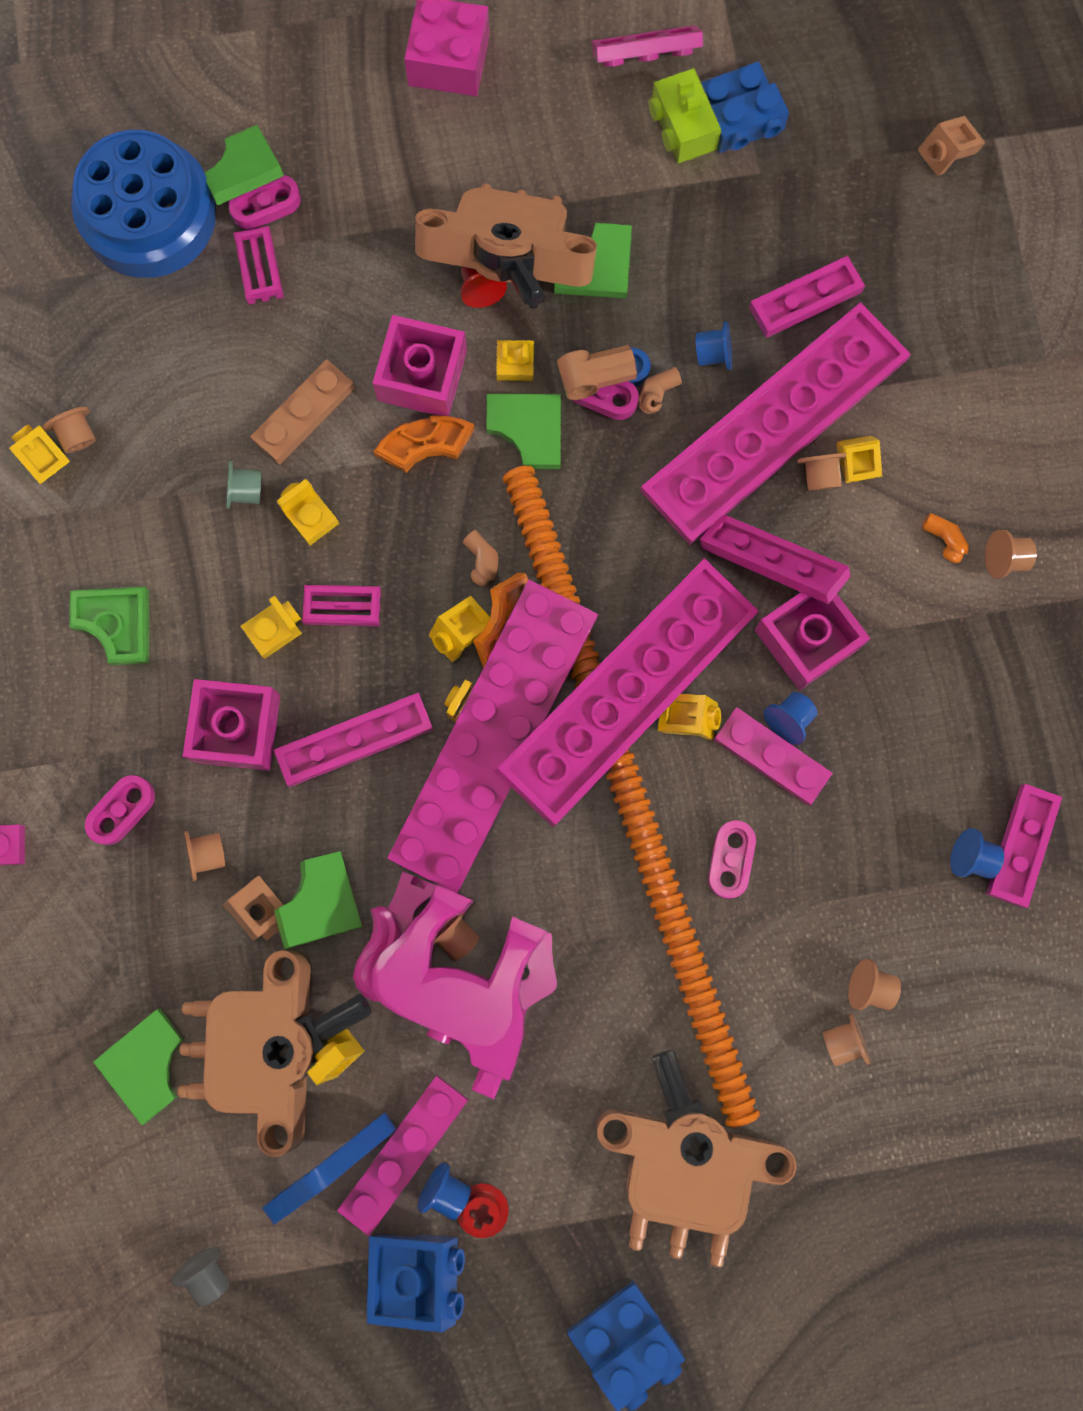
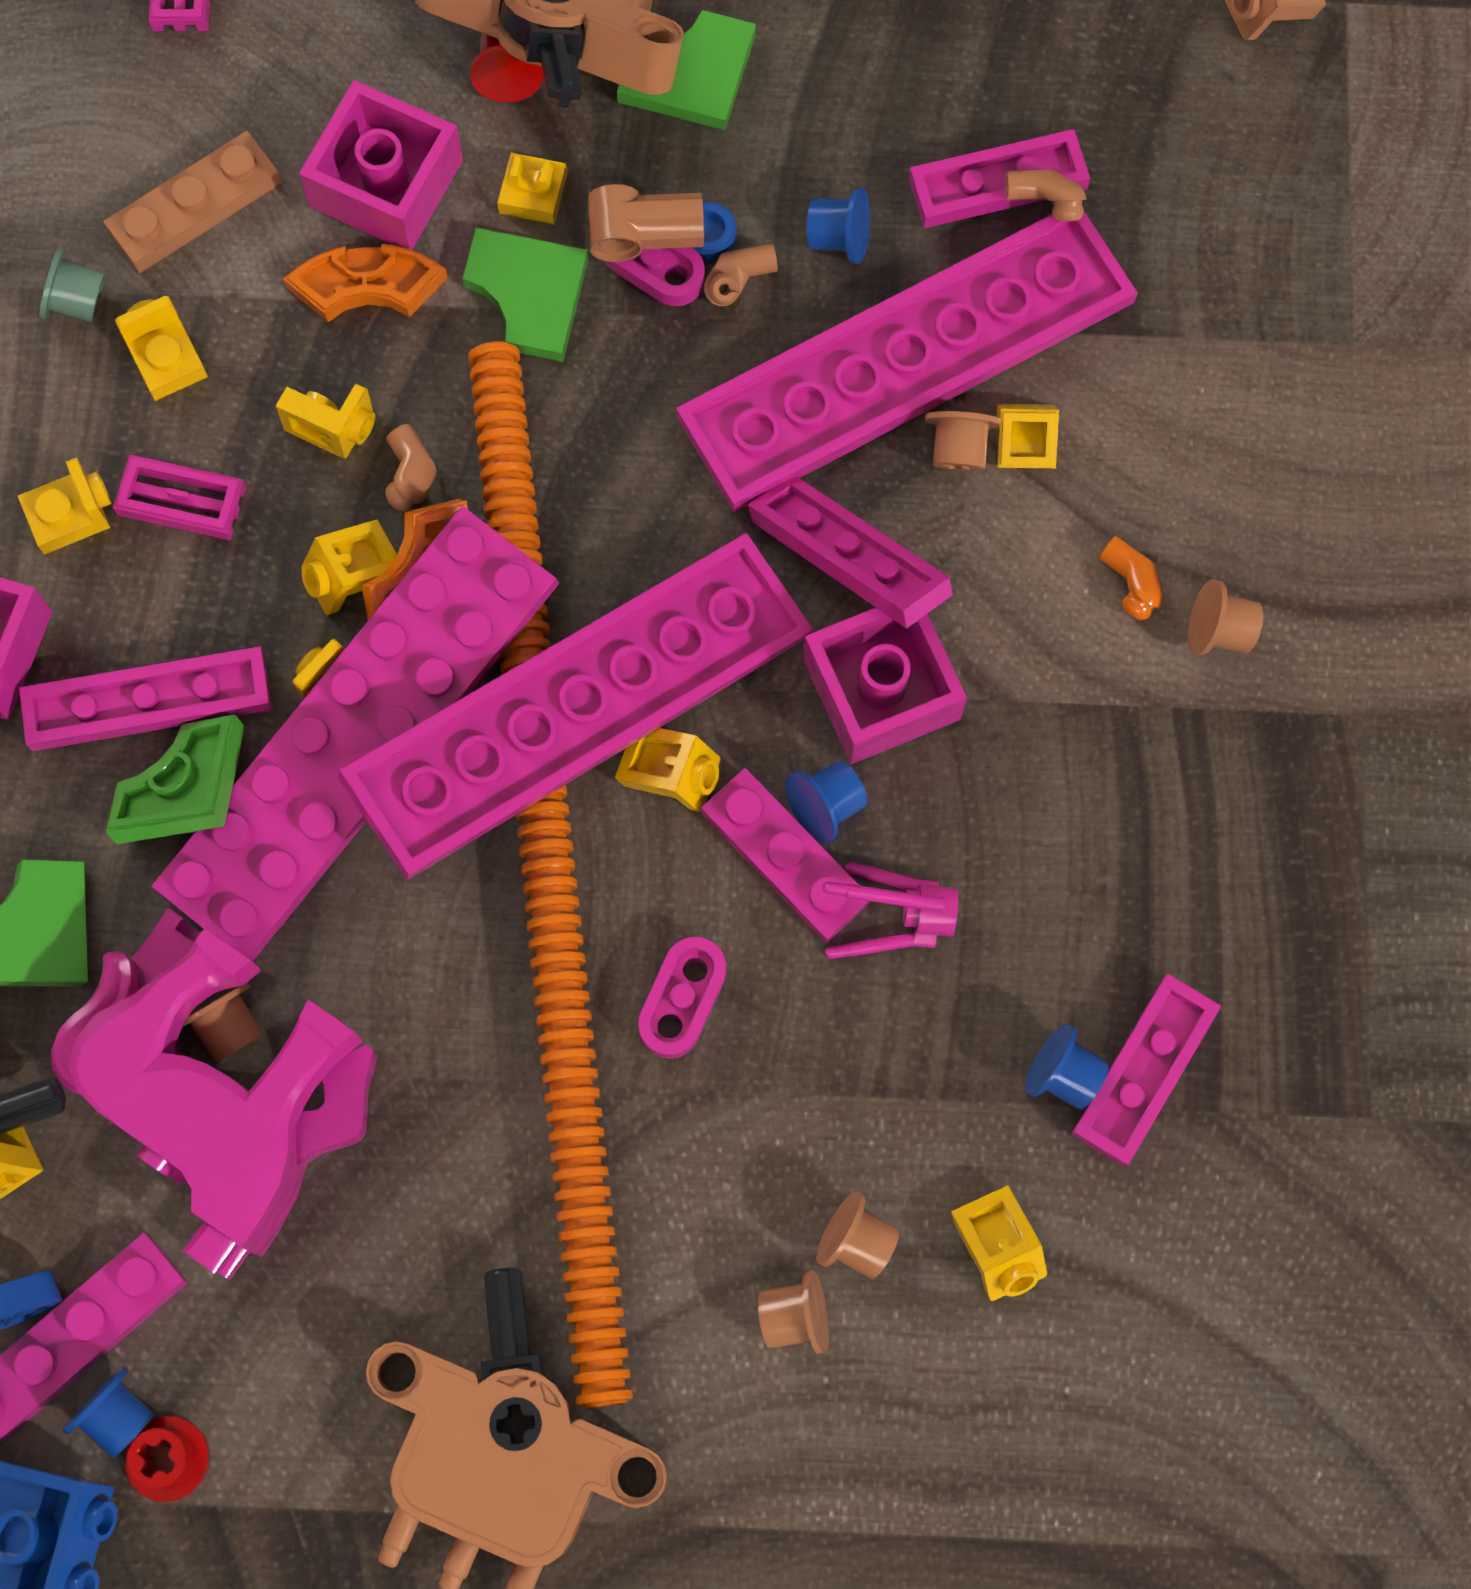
camera: 10 degrees right, 5 degrees down
(392, 793) = (183, 789): none -> bright green tile
(419, 540) = (320, 422): none -> yellow bracket
(842, 296) = (1050, 186): none -> nougat arm
(867, 773) = (925, 908): none -> dark pink plant
(960, 971) = (1001, 1243): none -> yellow bracket

